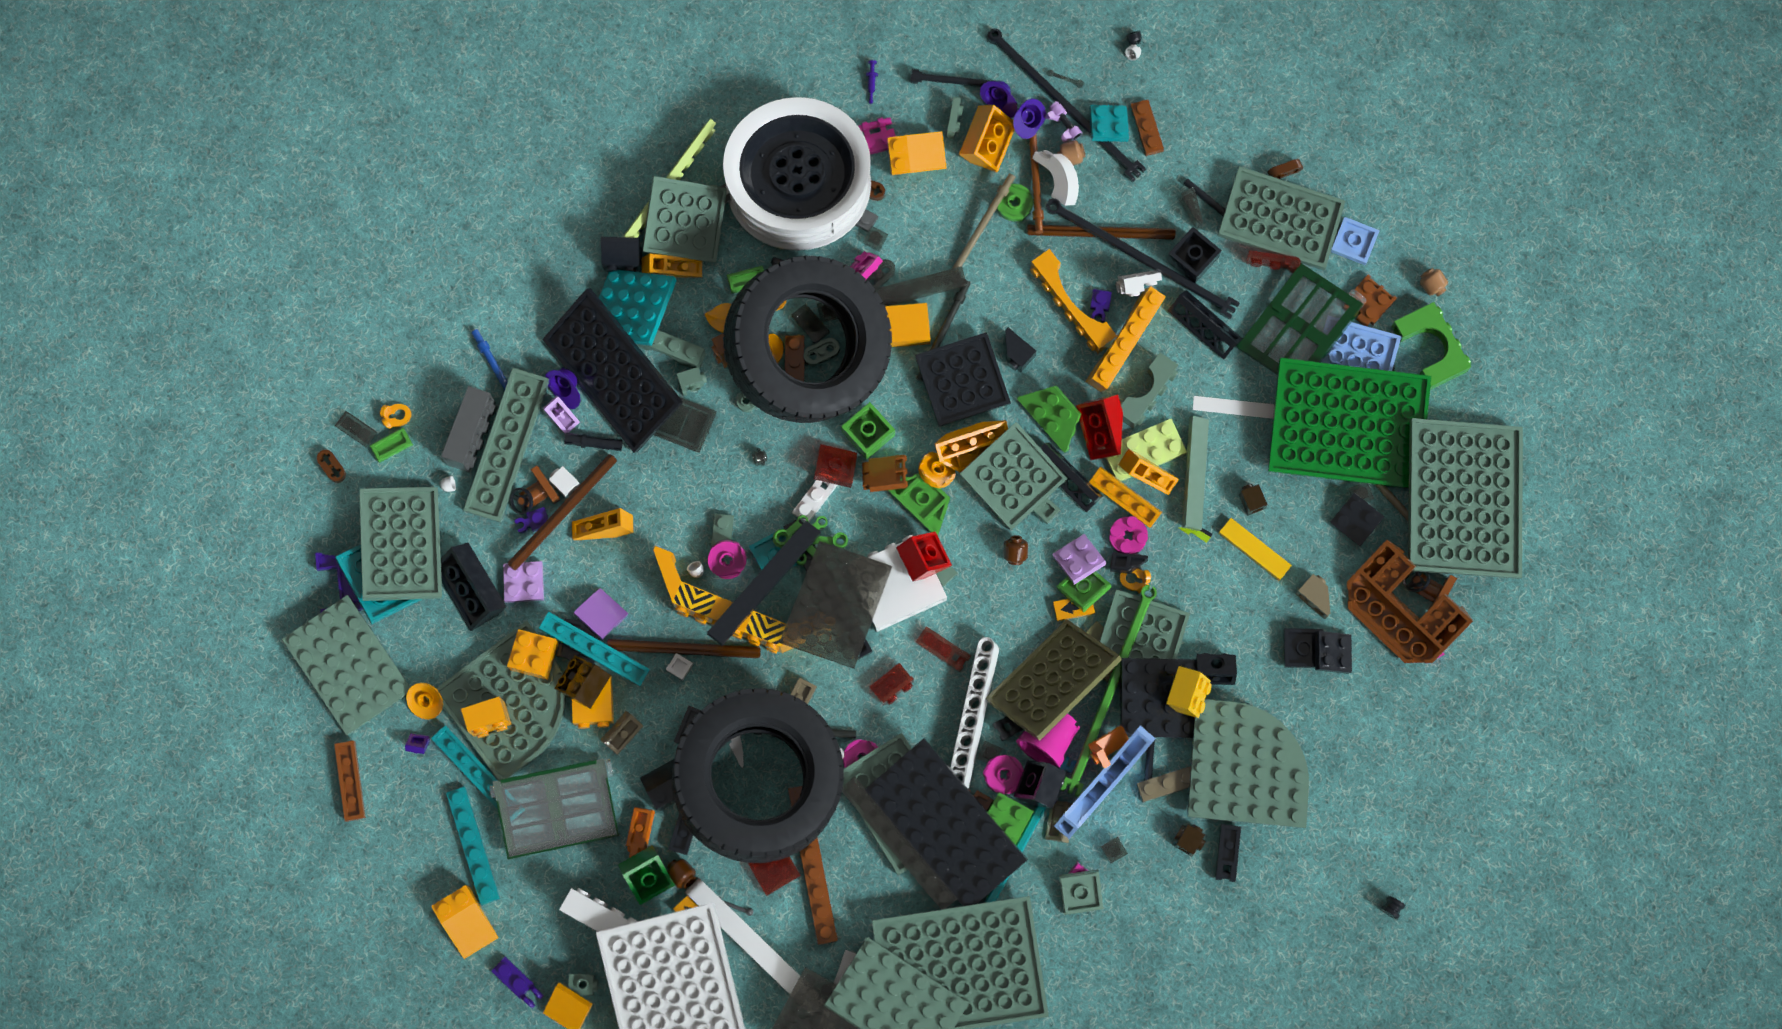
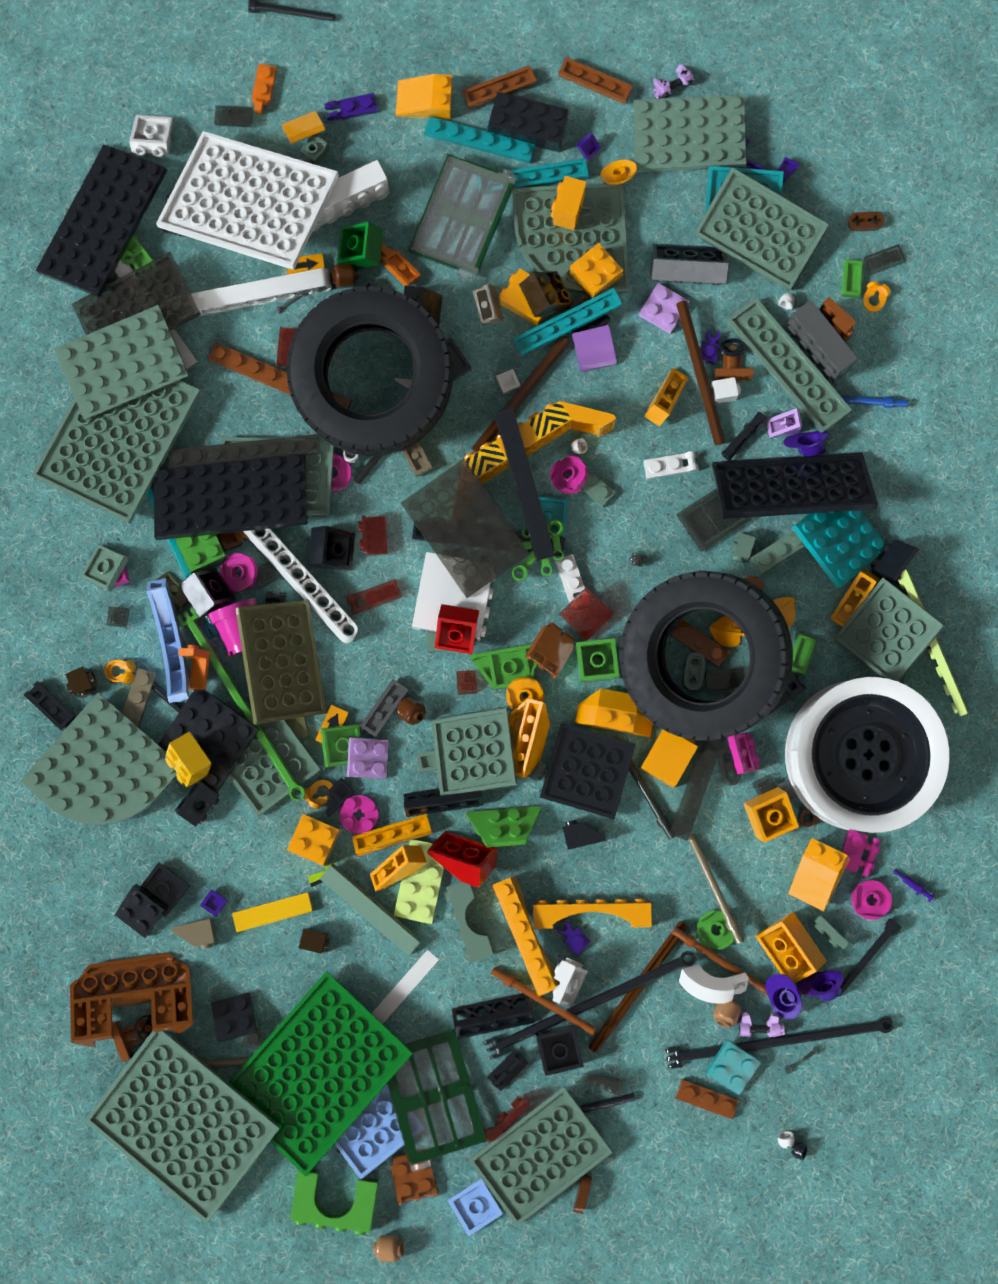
camera: 125 degrees right, 5 degrees up
(317, 716) = (664, 88): none -> lavender piece
(411, 861) = (507, 83): none -> dark orange plate
(429, 811) = (528, 121): none -> black brick
(441, 427) = (838, 318): none -> dark orange plate
(660, 485) = (670, 465): none -> white plate
(895, 217) = (771, 814): none -> light orange brick
(901, 393) = (613, 712): none -> light orange wedge
(904, 114) = (878, 908): none -> dark pink plate
(928, 712) = (331, 548): none -> black slope
(959, 525) = (466, 682): none -> clear red slope
(990, 415) = (538, 772): none -> clear smoke plate
(1028, 575) = (384, 708): none -> dark grey plate
(1147, 811) = (127, 678): none -> light orange piece
(1169, 329) = (509, 980): none -> dark orange bar
(1175, 555) = (313, 840): none -> light orange brick
(1237, 286) = (507, 1070): none -> black hinge
(1283, 599) = (214, 903): none -> dark purple plate

